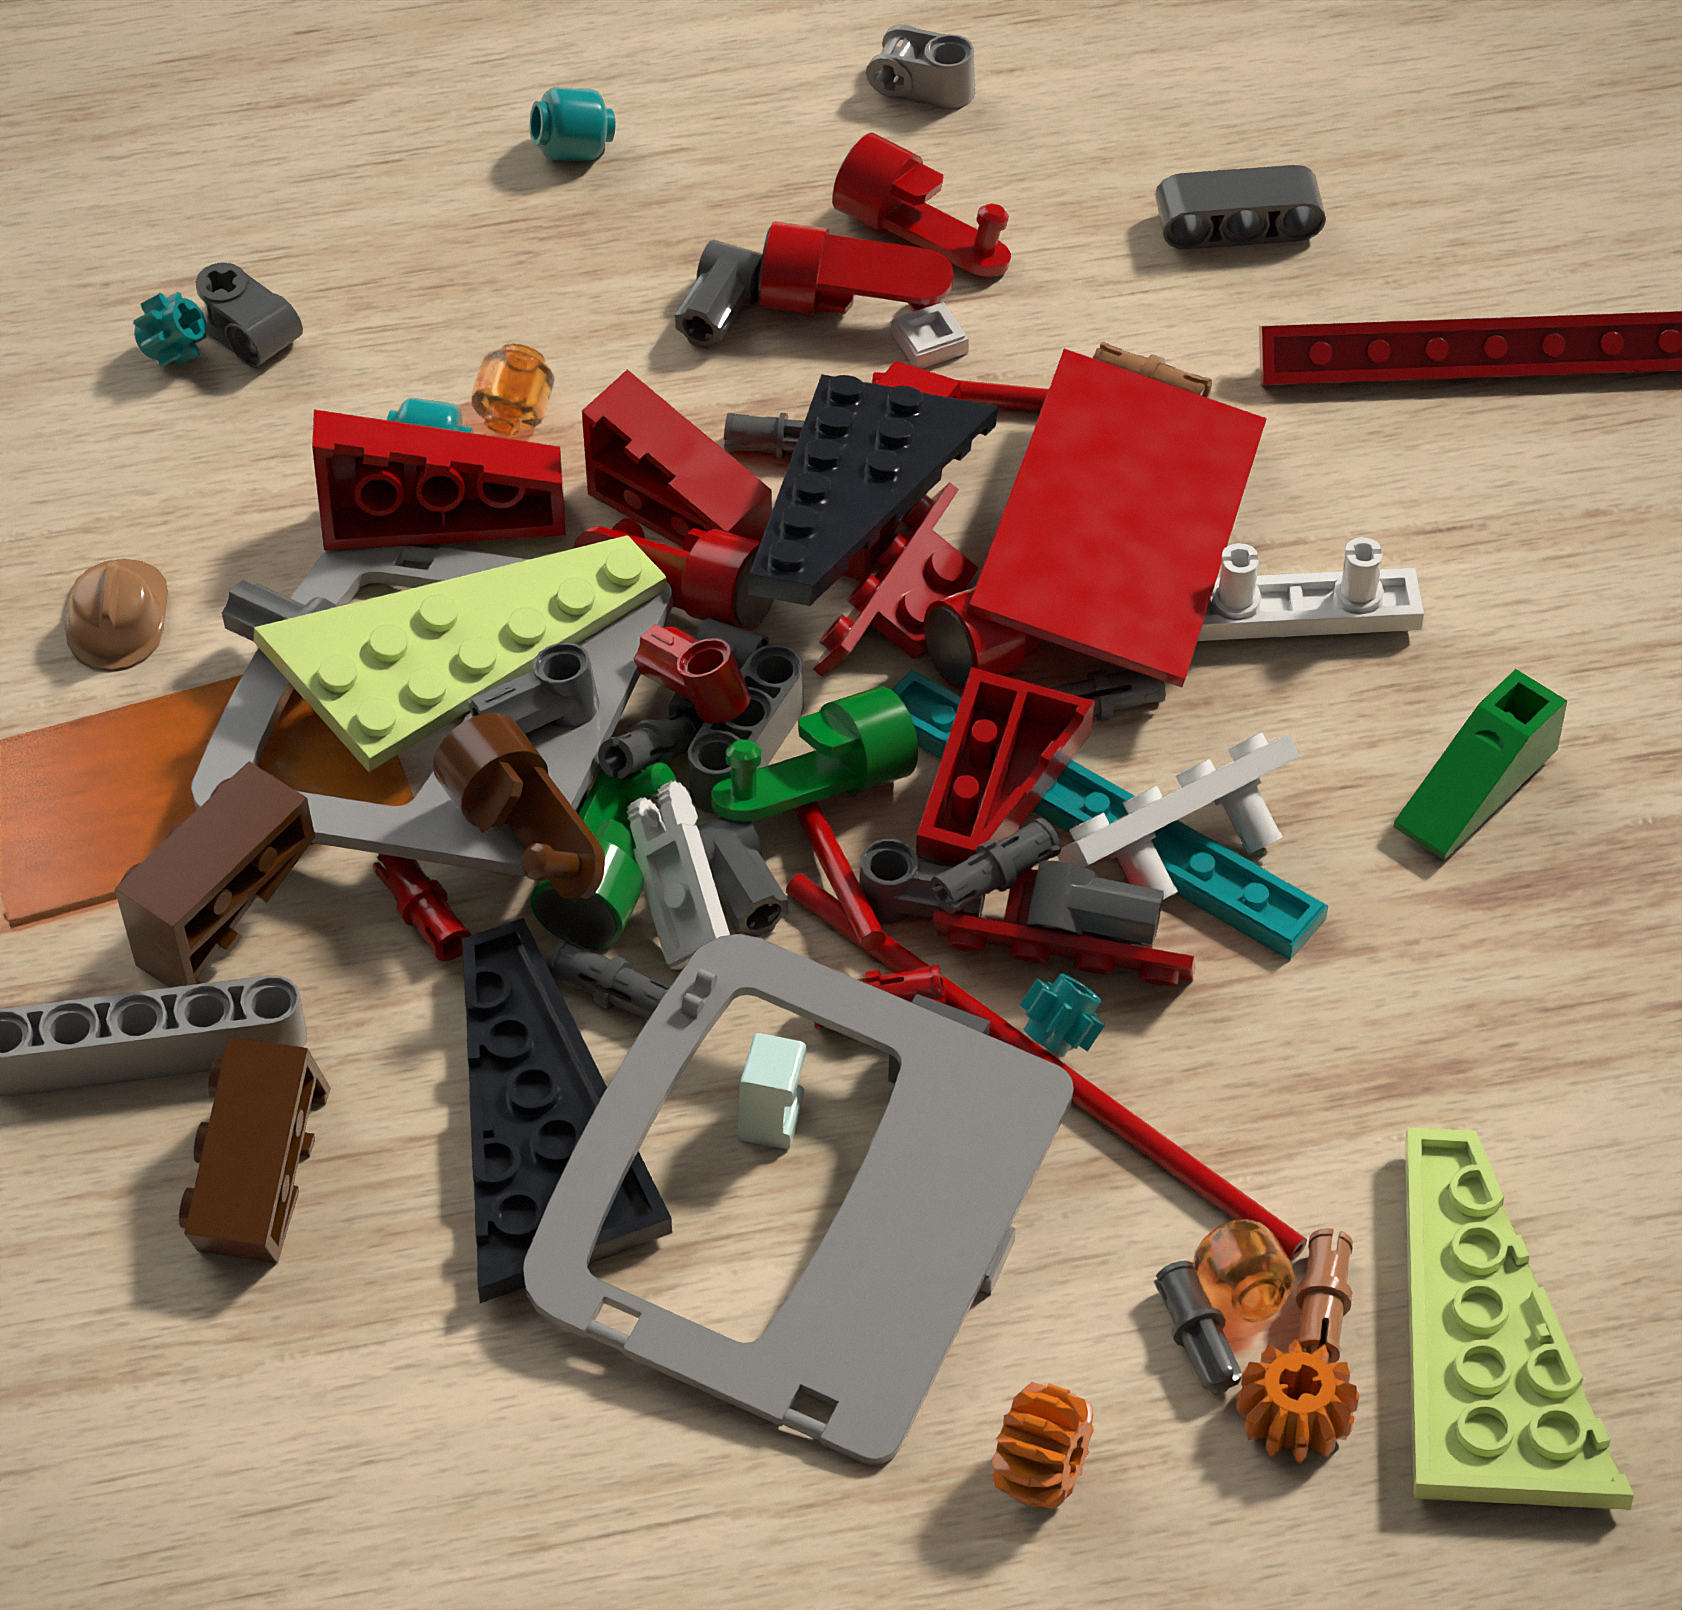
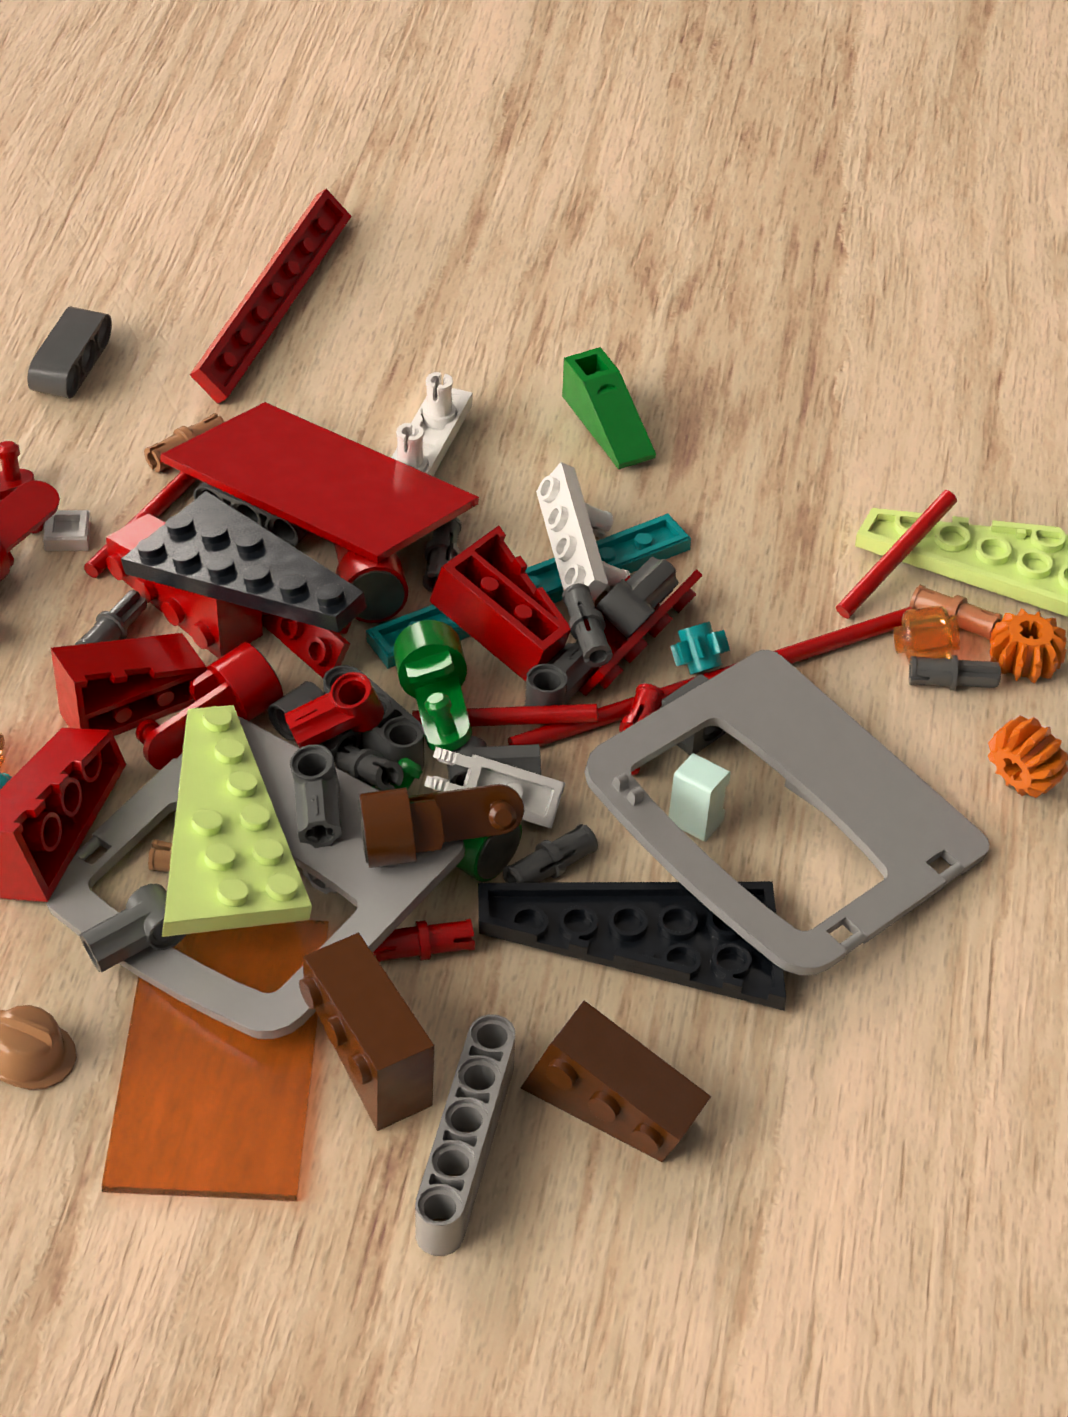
camera: 70 degrees left, 5 degrees down
(1388, 1184) = (896, 554): none -> red bar

